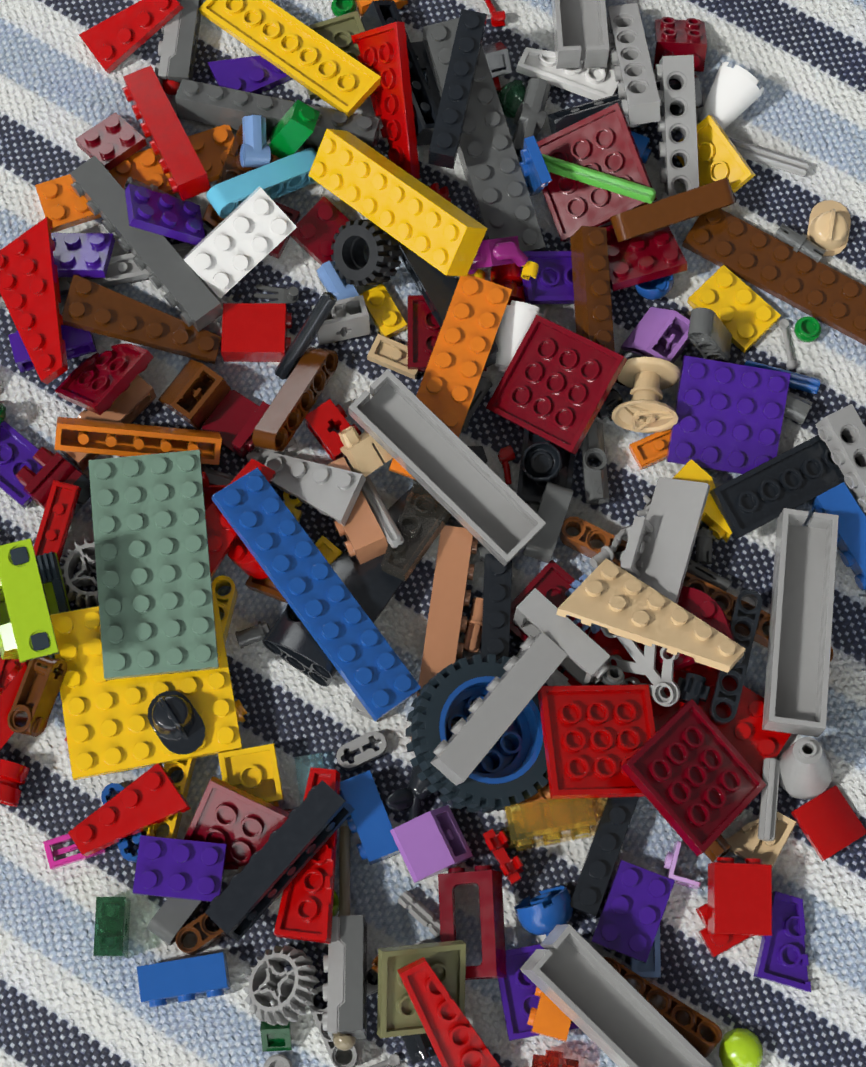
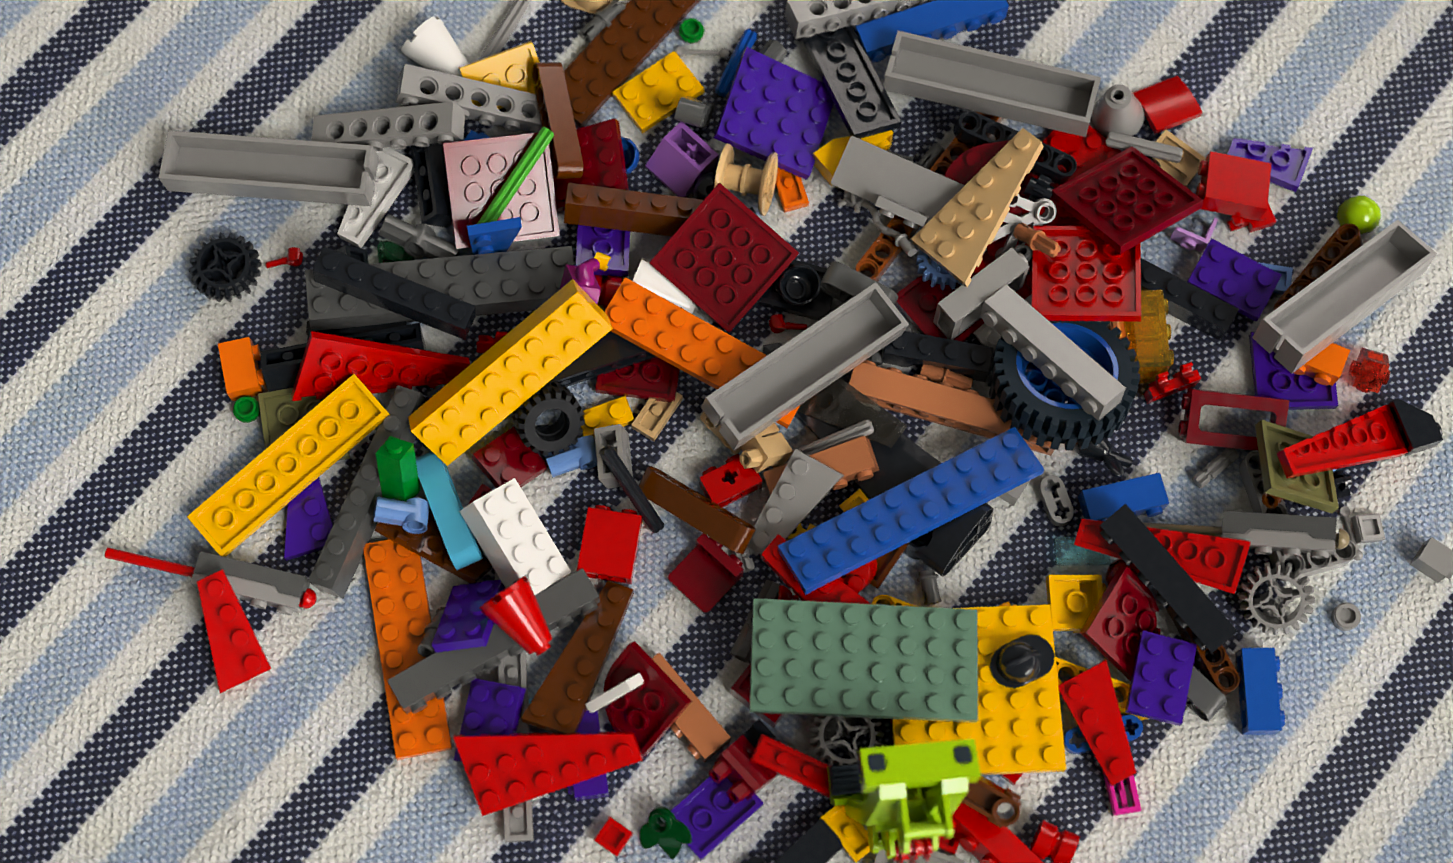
camera: 85 degrees left, 0 degrees up
(103, 349) = (615, 693): none -> white tile
(111, 141) = (361, 669): plate -> none
(112, 927) = (1206, 753): clear green brick -> none
(134, 439) = (721, 670): orange brick -> none
(159, 249) = (519, 616): none -> red cone
(166, 133) = (368, 606): red brick -> none
(195, 393) = (666, 614): reddish brown slope -> none
(275, 1037) = (1321, 613): dark green plate -> none
(281, 295) = (571, 512): dark grey piece -> none
(431, 843) = (1157, 443): medium lavender slope -> none
(545, 910) = (1226, 354): blue cylinder -> none
(595, 477) = (816, 243): dark grey piece -> none
(627, 684) = (1036, 240): none -> nougat axle
(681, 38) = (362, 84): dark red bracket -> none

